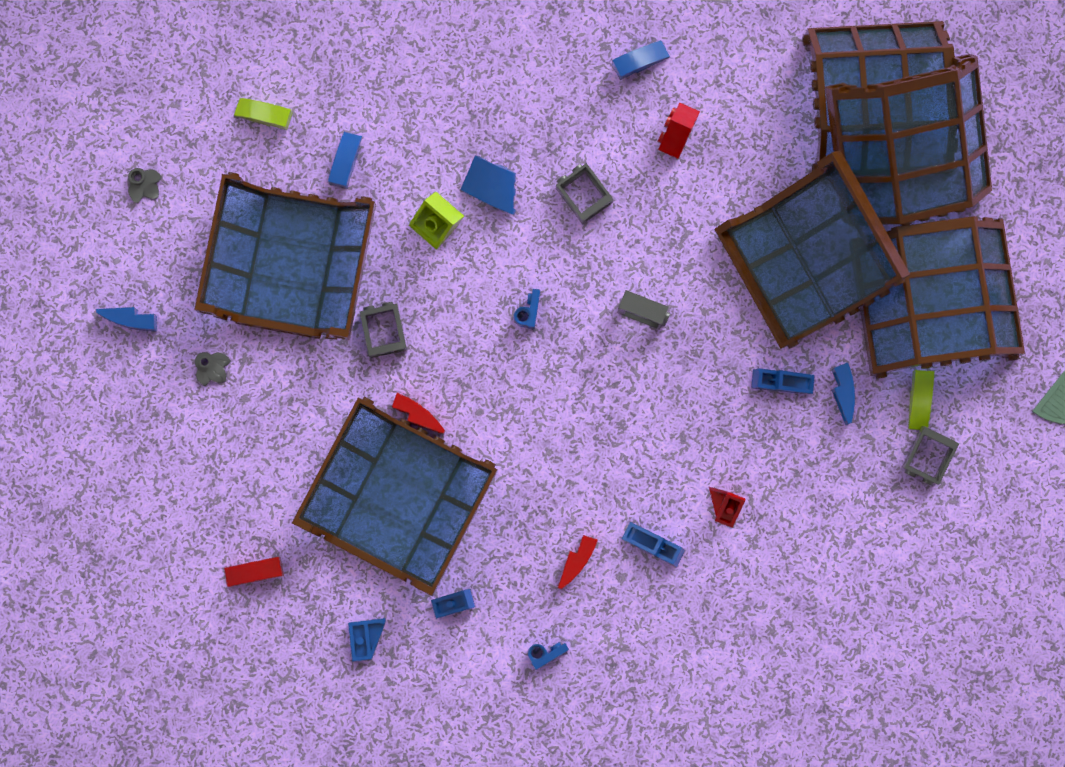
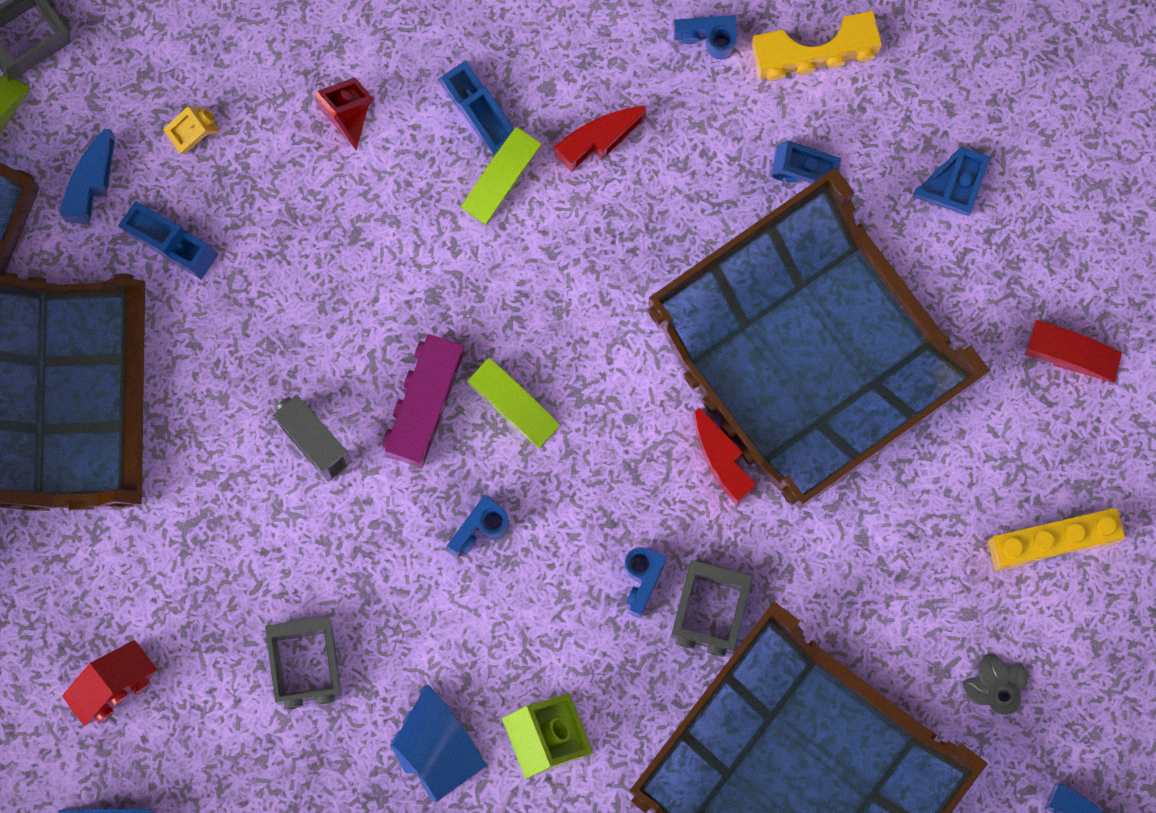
camera: 150 degrees left, 5 degrees down
(213, 460) = (1055, 539): none -> yellow arch
(424, 328) = (640, 596): none -> blue plate
(462, 694) = (779, 54): none -> yellow arch
(545, 386) = (513, 403): none -> lime slope
(594, 362) = (424, 400): none -> magenta brick
(619, 510) = (501, 175): none -> lime slope
(805, 450) = (190, 128): none -> yellow bracket

